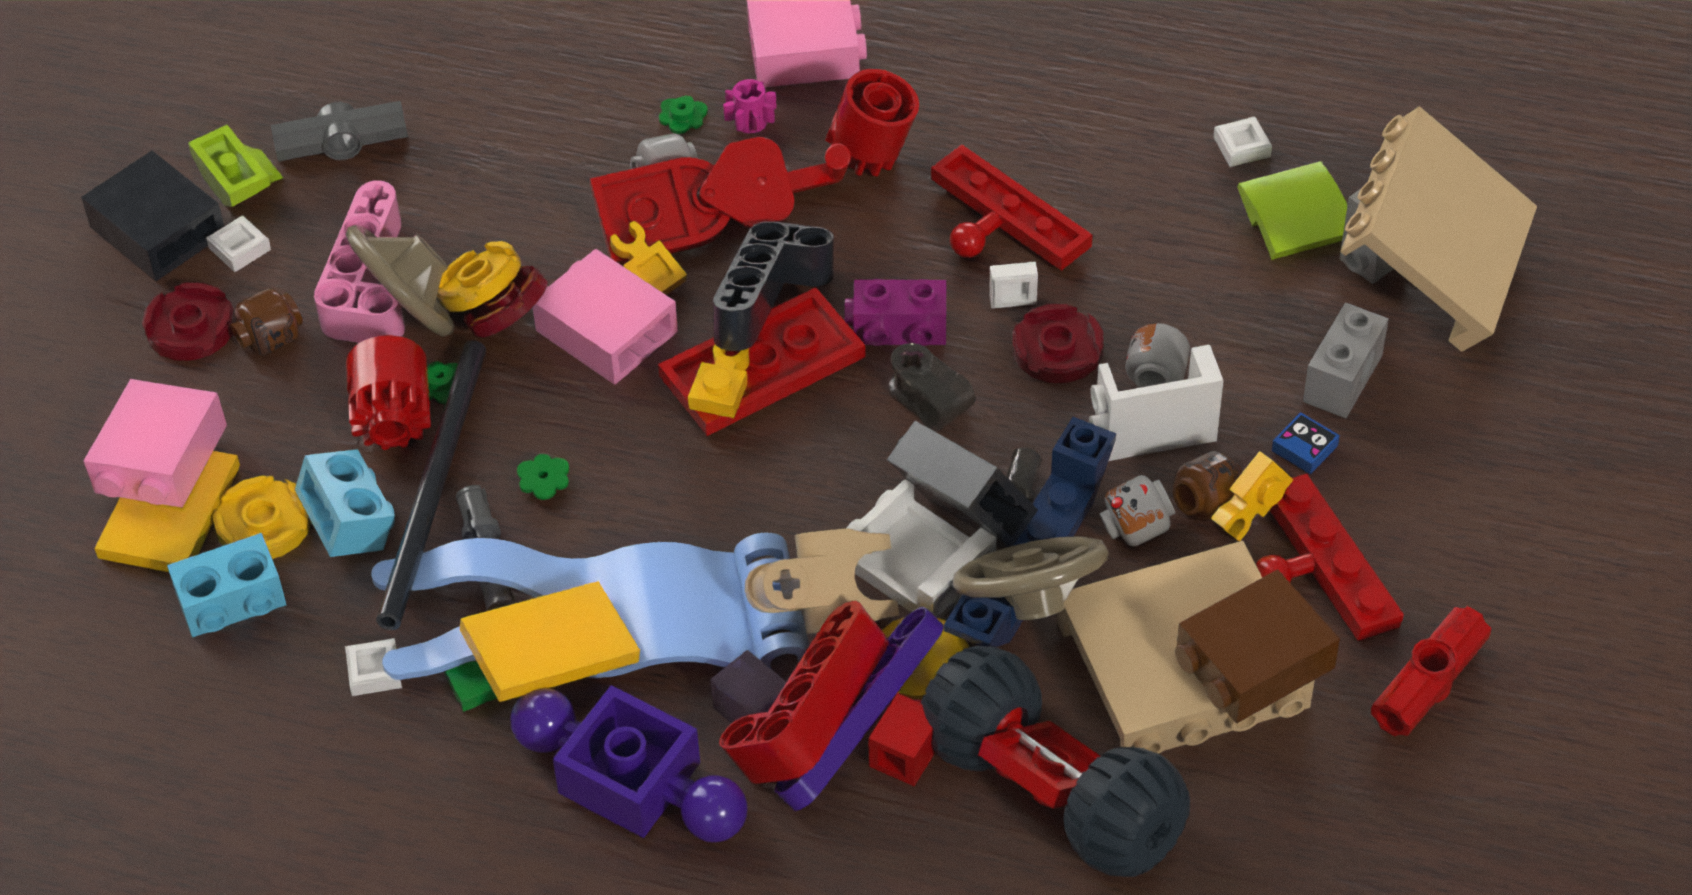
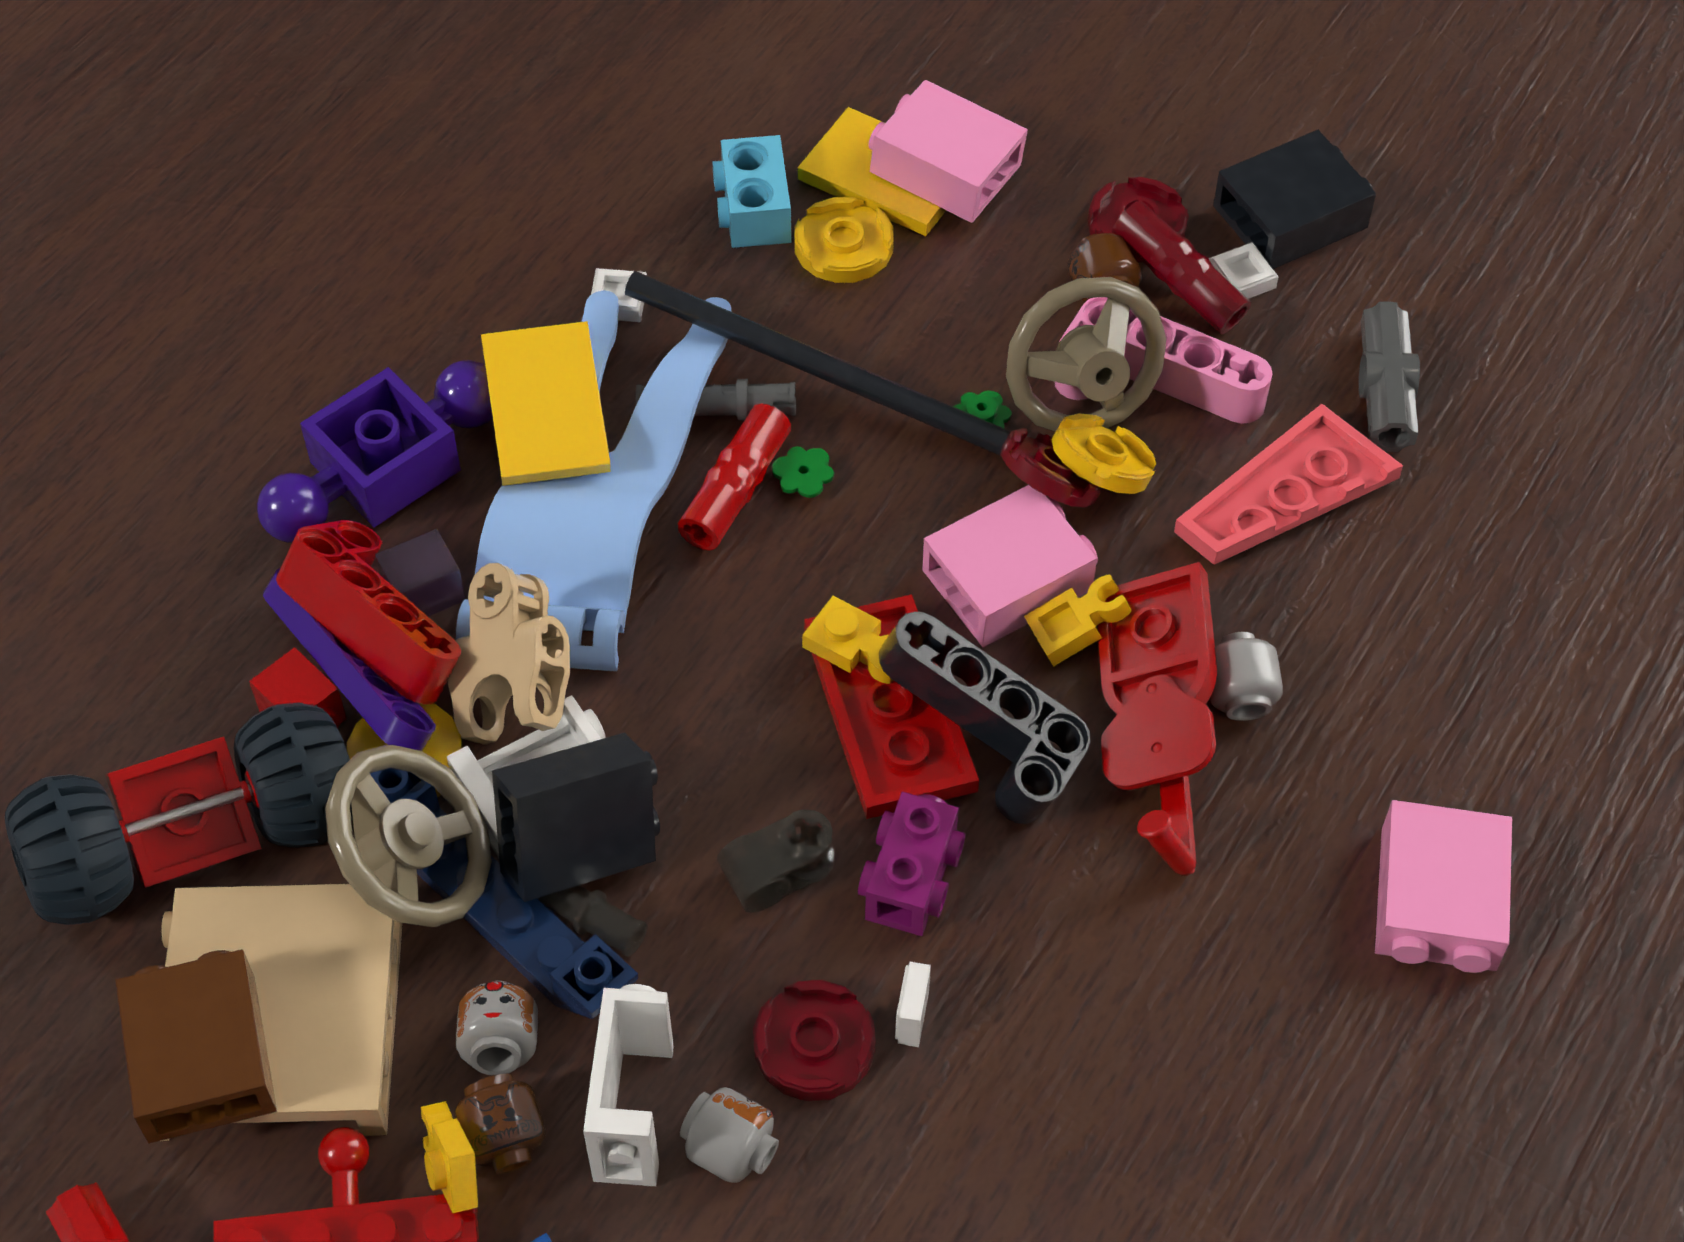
camera: 105 degrees right, 5 degrees up
(232, 167) = (1353, 276): lime slope -> none
(256, 266) = (1181, 267): none -> dark red axle
(344, 502) = (812, 274): medium azure brick -> none
(388, 391) = (944, 340): red gear -> none
(461, 170) = (1291, 481): none -> coral wing
(569, 513) = (734, 477): none -> red axle
(682, 114) = (1353, 743): green plant -> none
(749, 106) = (1325, 791): dark pink gear -> none
(874, 119) = (1235, 867): red gear -> none
(1006, 206) = (1054, 1045): red plate -> none

